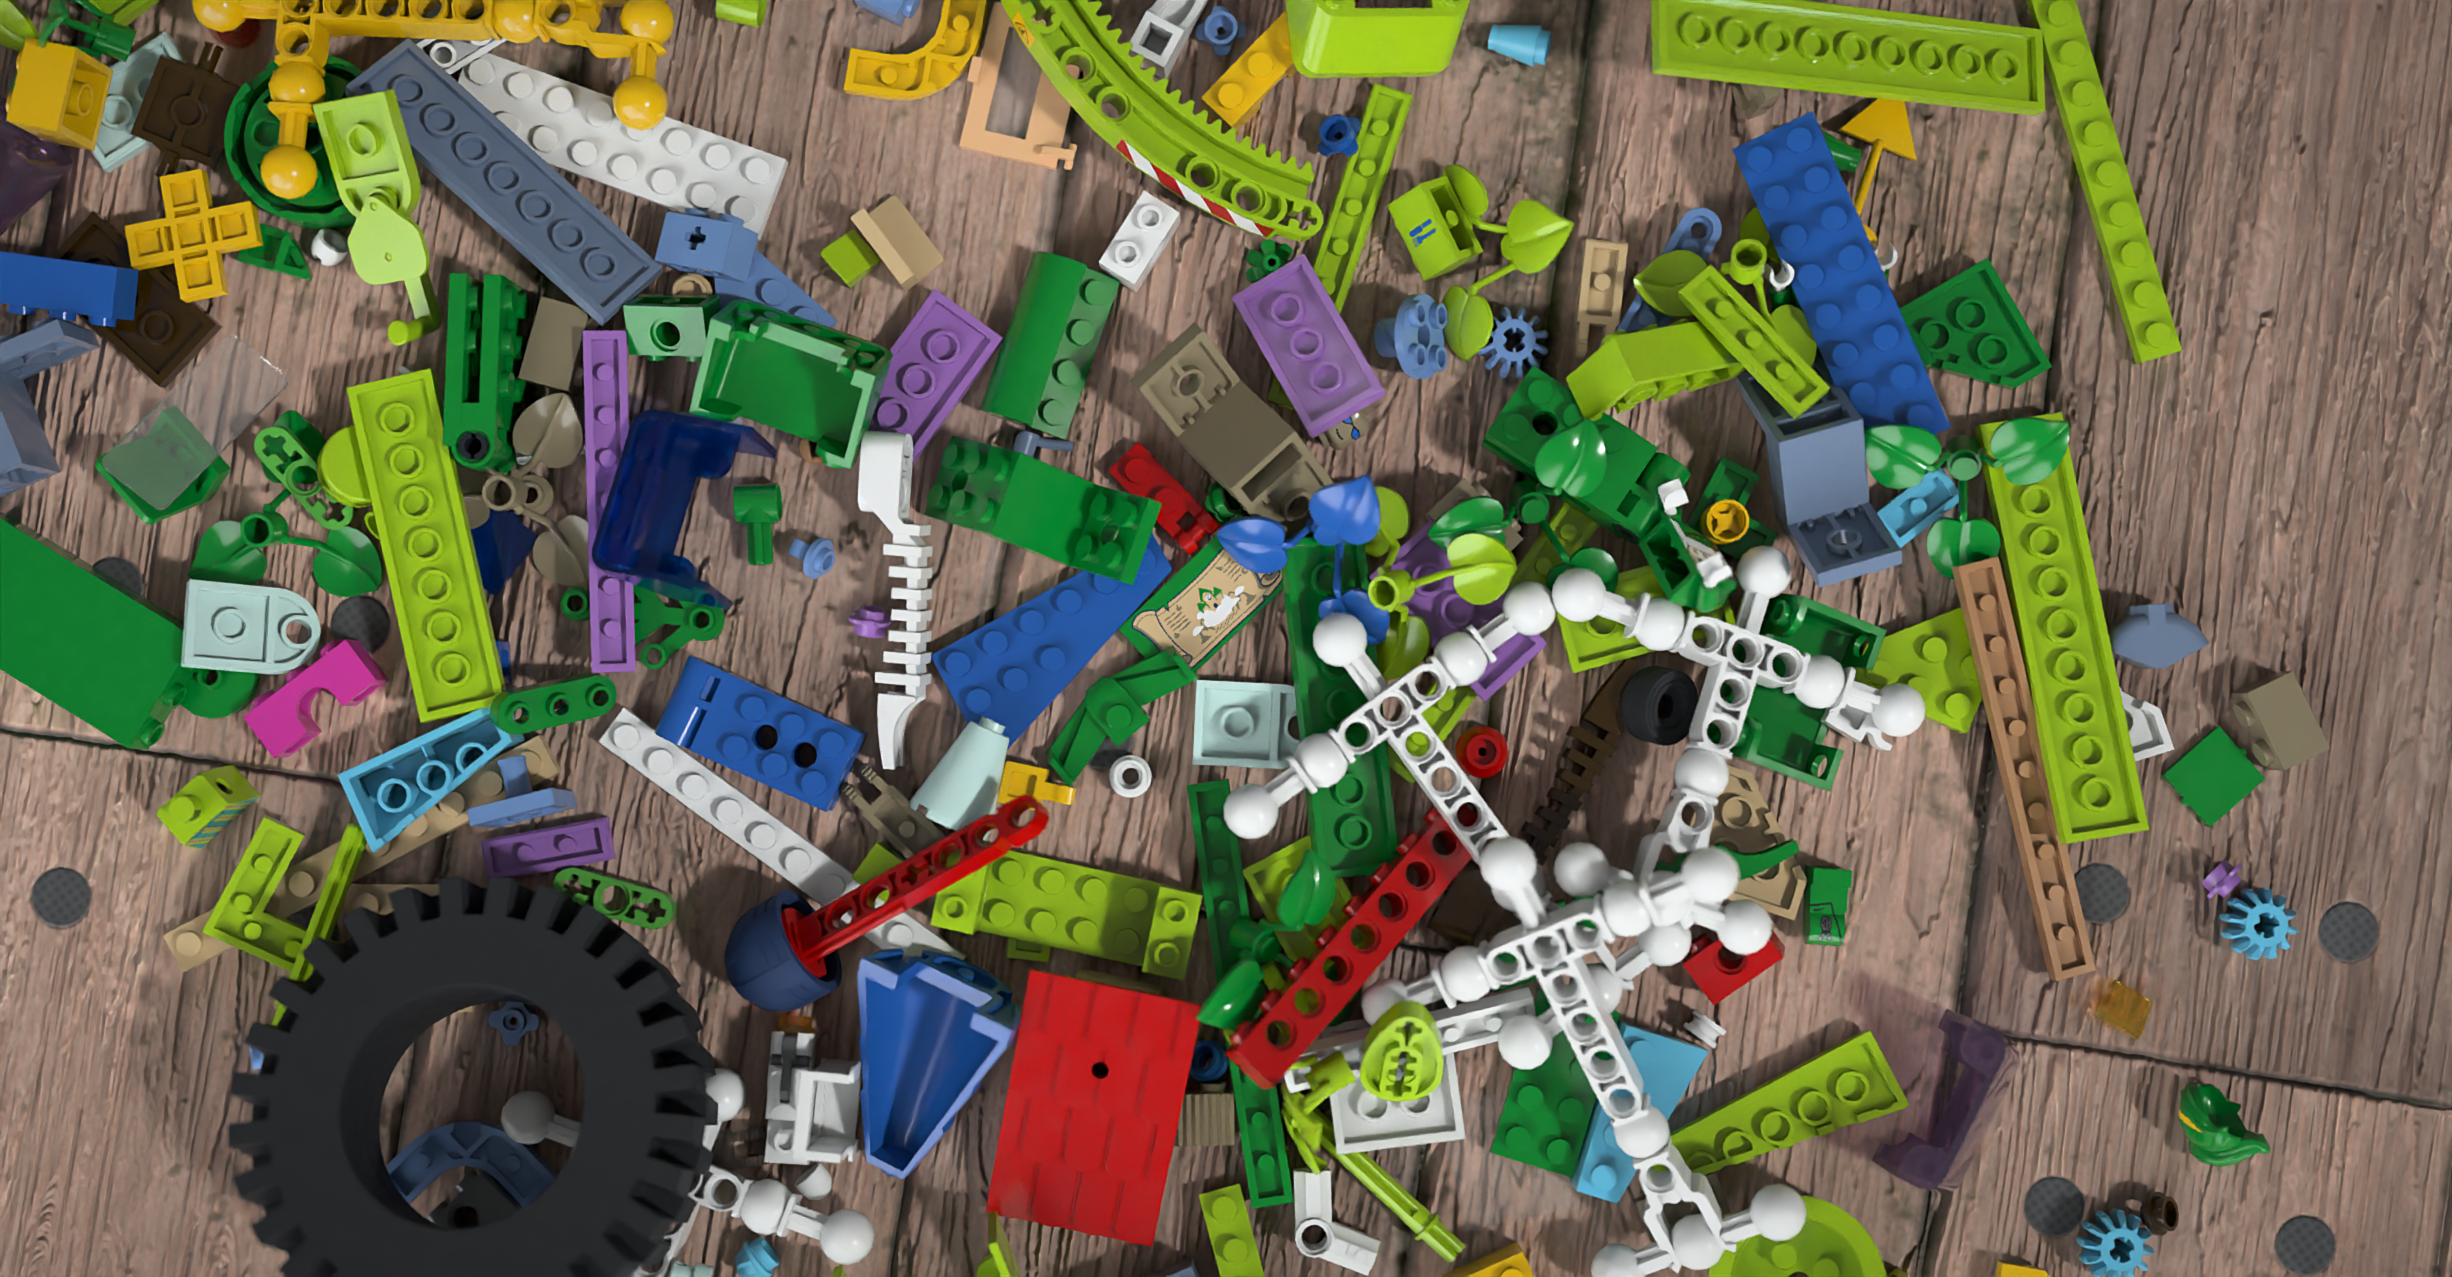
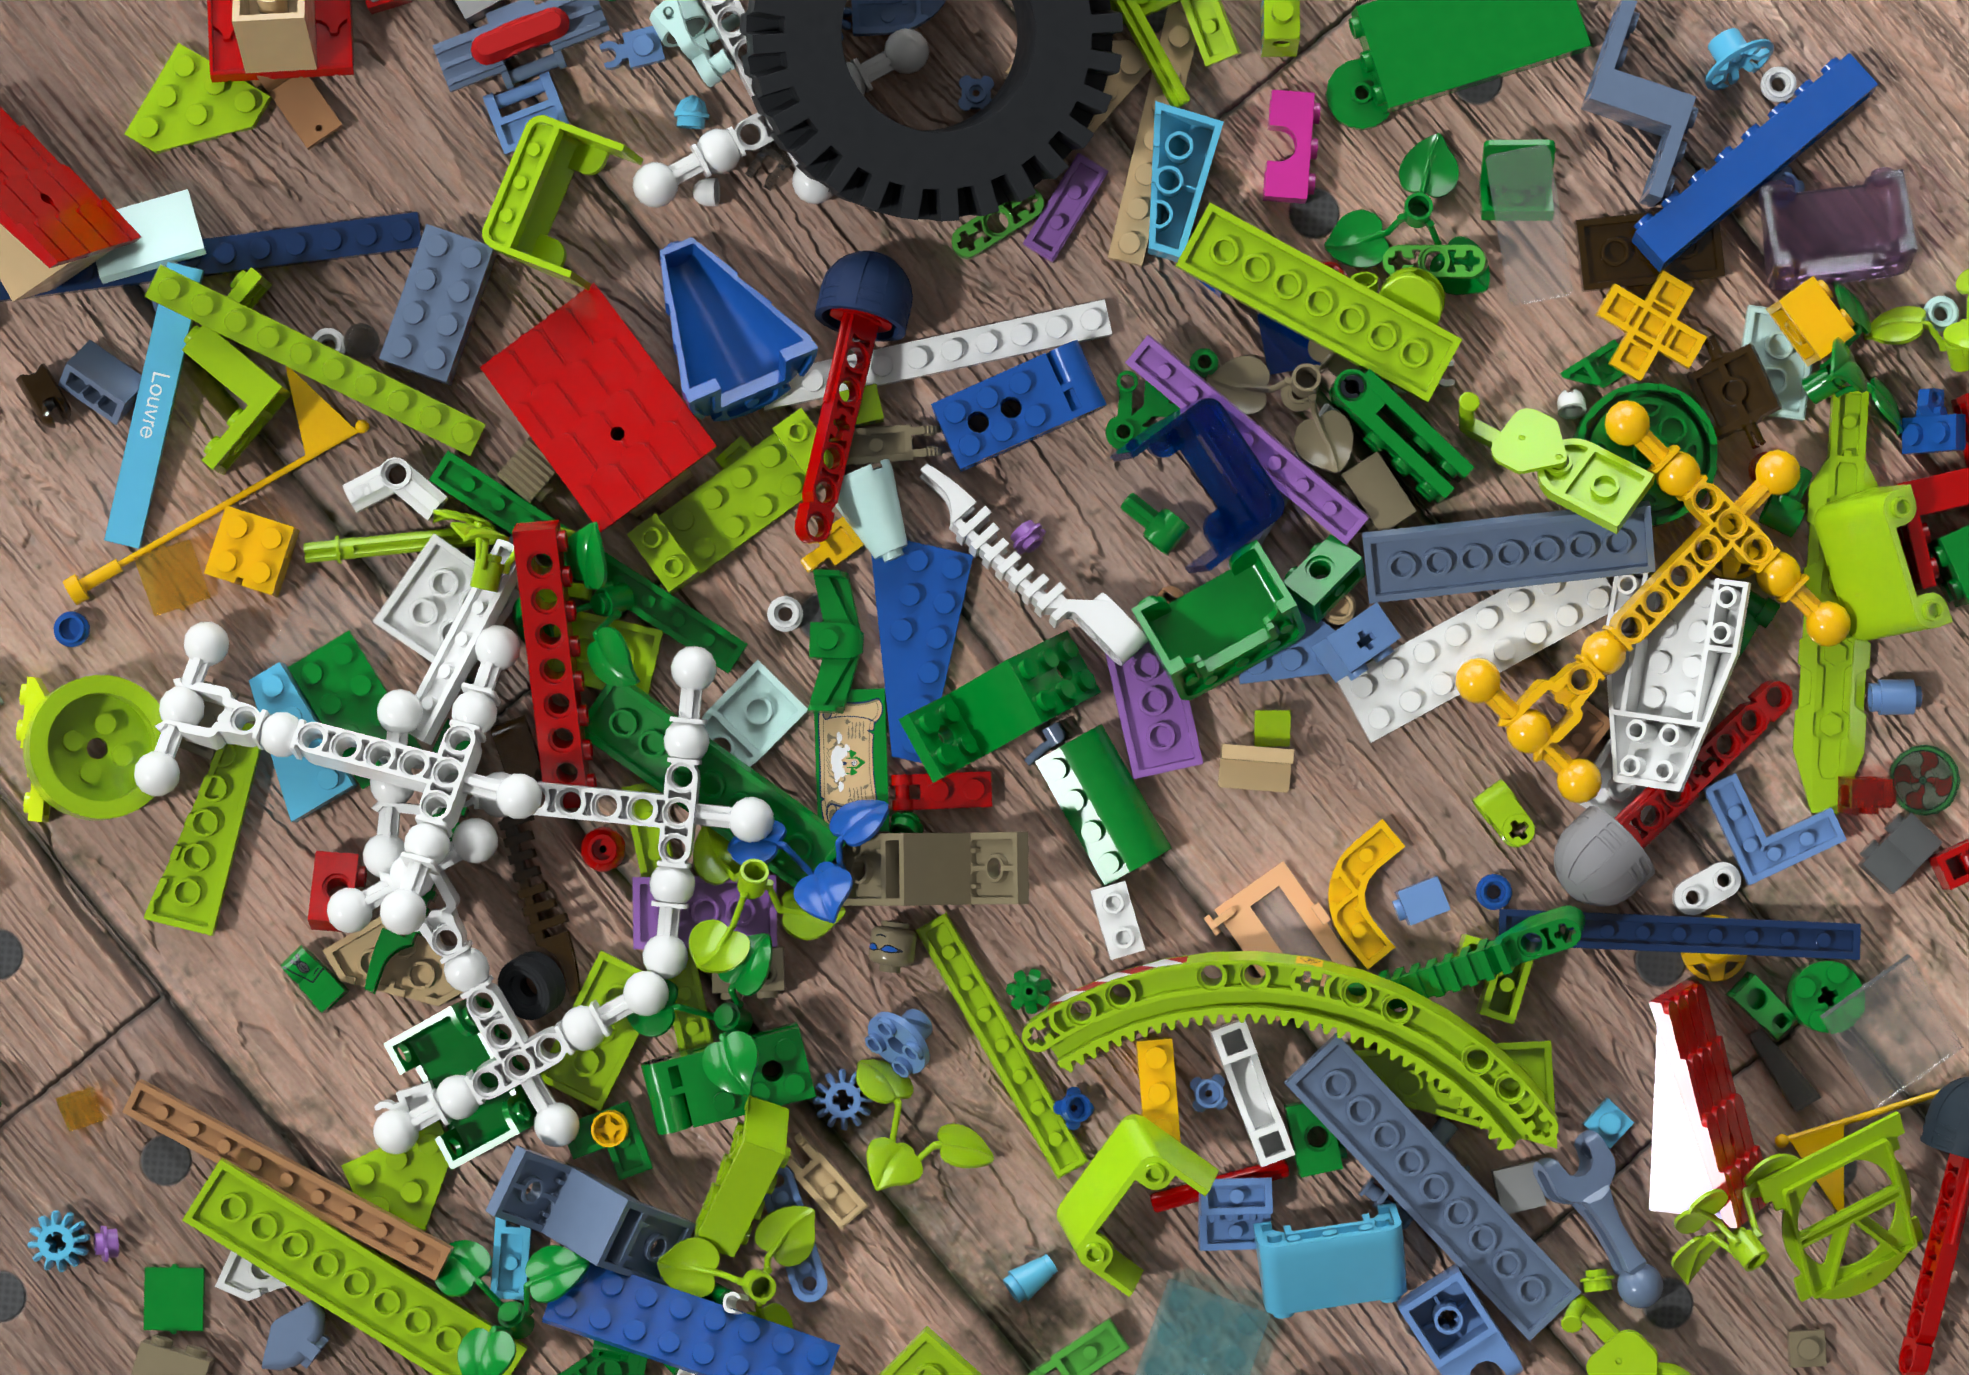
camera: 125 degrees right, 0 degrees up
(245, 628) = (1370, 141): light aqua tile -> none
(521, 801) = (1108, 220): medium blue tile -> none
(539, 699) = (1158, 286): green plate -> none
(790, 1051) = (777, 228): white plate -> none
(816, 557) = (1098, 538): medium blue plate -> none
(834, 1112) = (742, 242): white piece -> none
(1202, 1052) = (554, 507): blue plate -> none
(1308, 346) = (954, 966): medium lavender plate -> none
(1386, 1041) = (476, 625): lime piece -> none
(1434, 228) = (958, 1114): lime brick -> none
(1685, 560) = (606, 1080): green torso -> none
(1704, 1028) = (305, 833): white bush -> none
(1753, 342) = (705, 1244): lime plate -> none
(1988, 1071) = (89, 909): clear purple windscreen -> none

